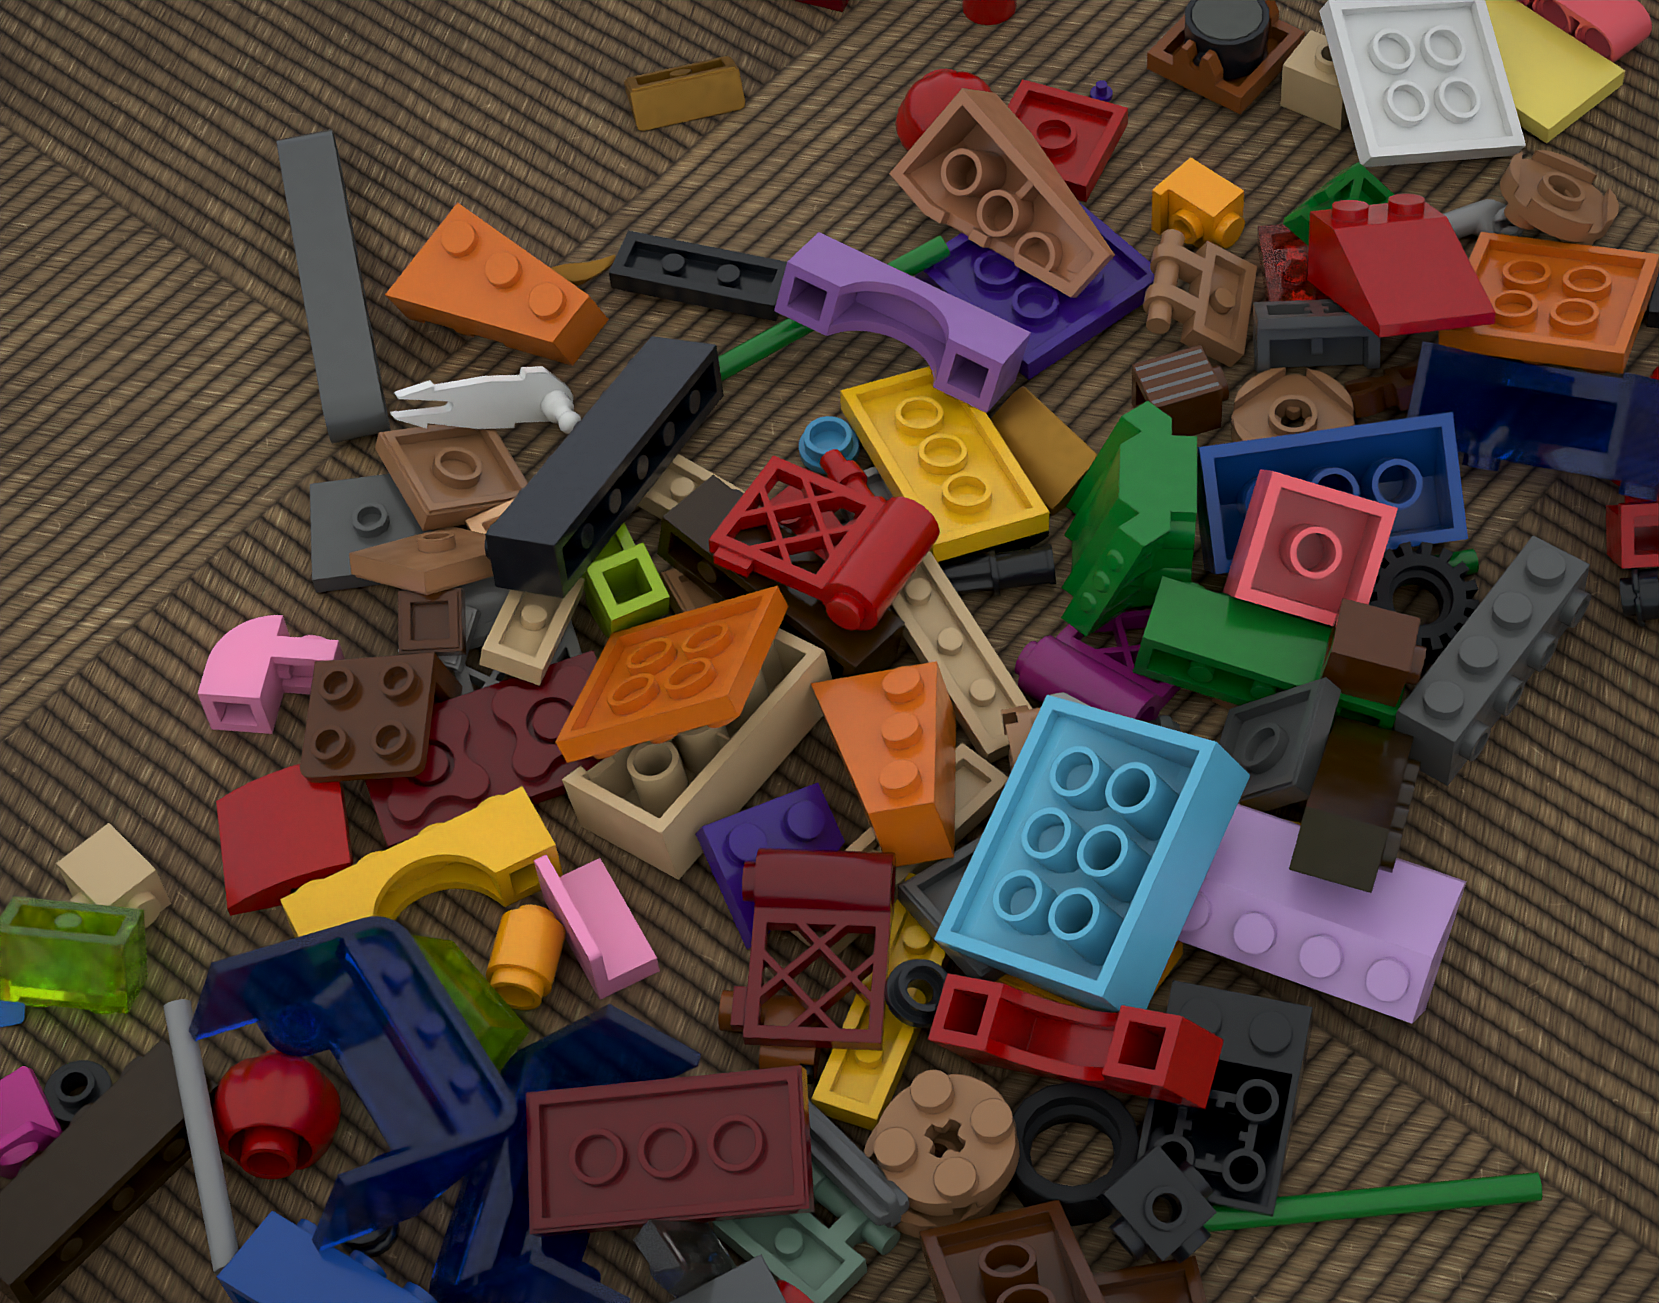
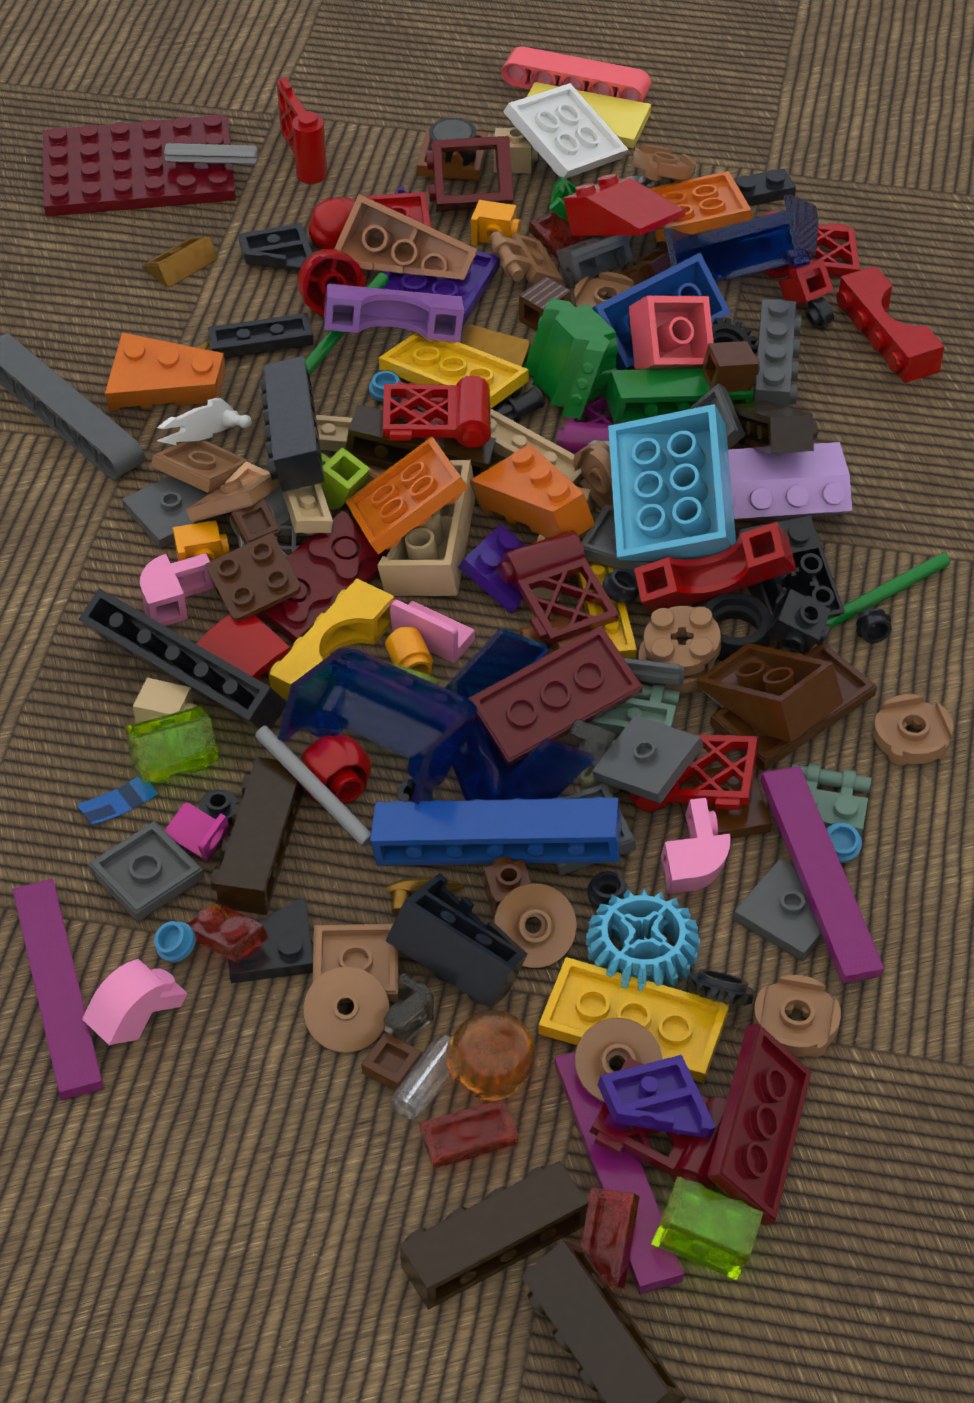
camera: 35 degrees left, 5 degrees down
(175, 811) = (183, 661): none -> black brick
(354, 613) = (200, 539): none -> light orange brick
(836, 126) = (276, 247): none -> black wing
(862, 210) = (325, 268): none -> red cylinder
(1264, 121) = (469, 201): none -> dark red window
(1313, 1262) = (874, 625): none -> black plate

